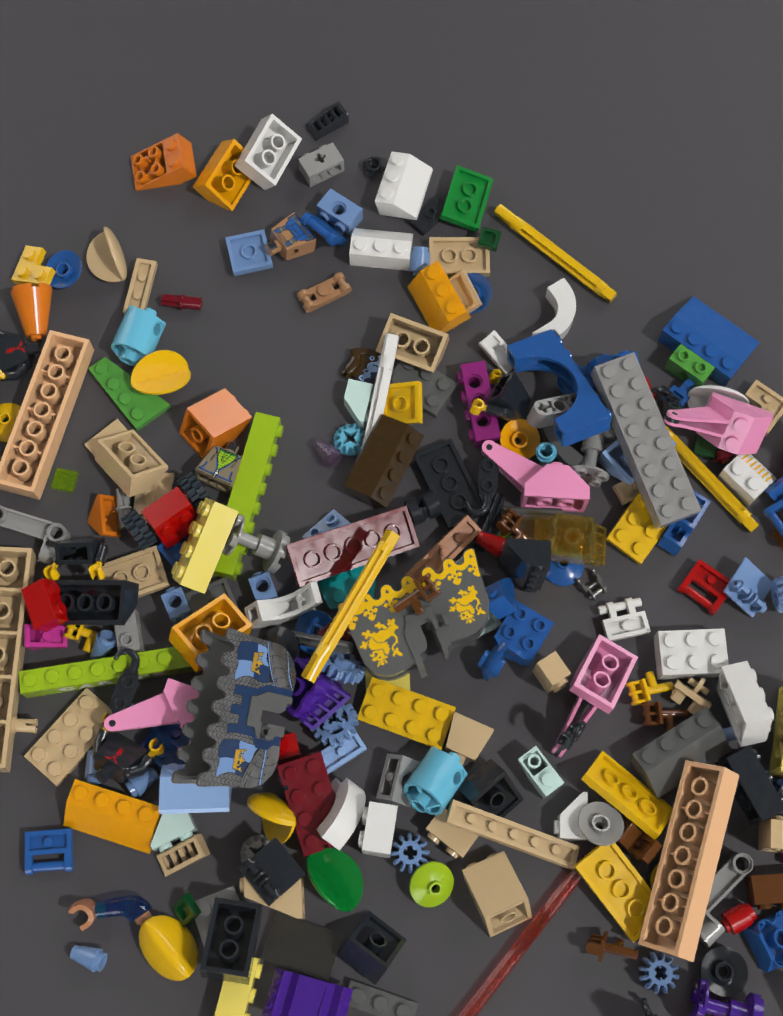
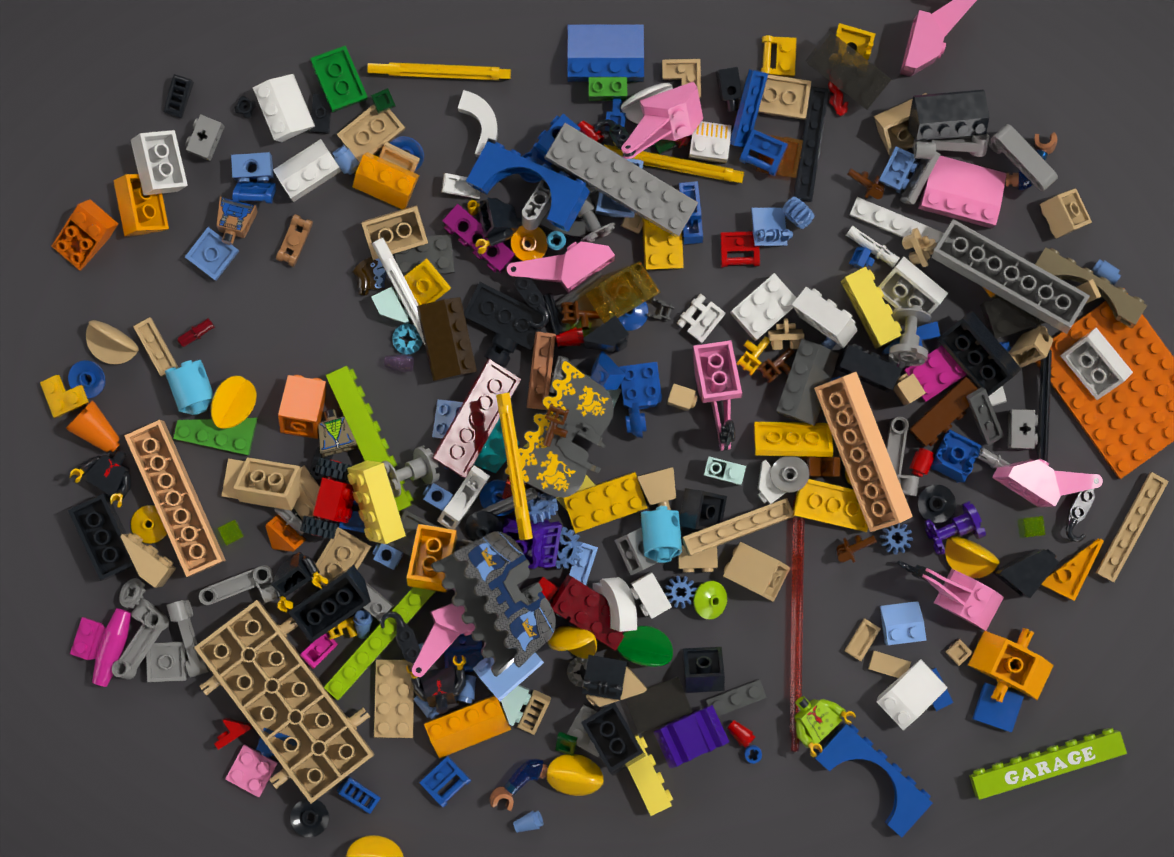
camera: 40 degrees left, 15 degrees up
(44, 605) = (303, 630): red brick -> none

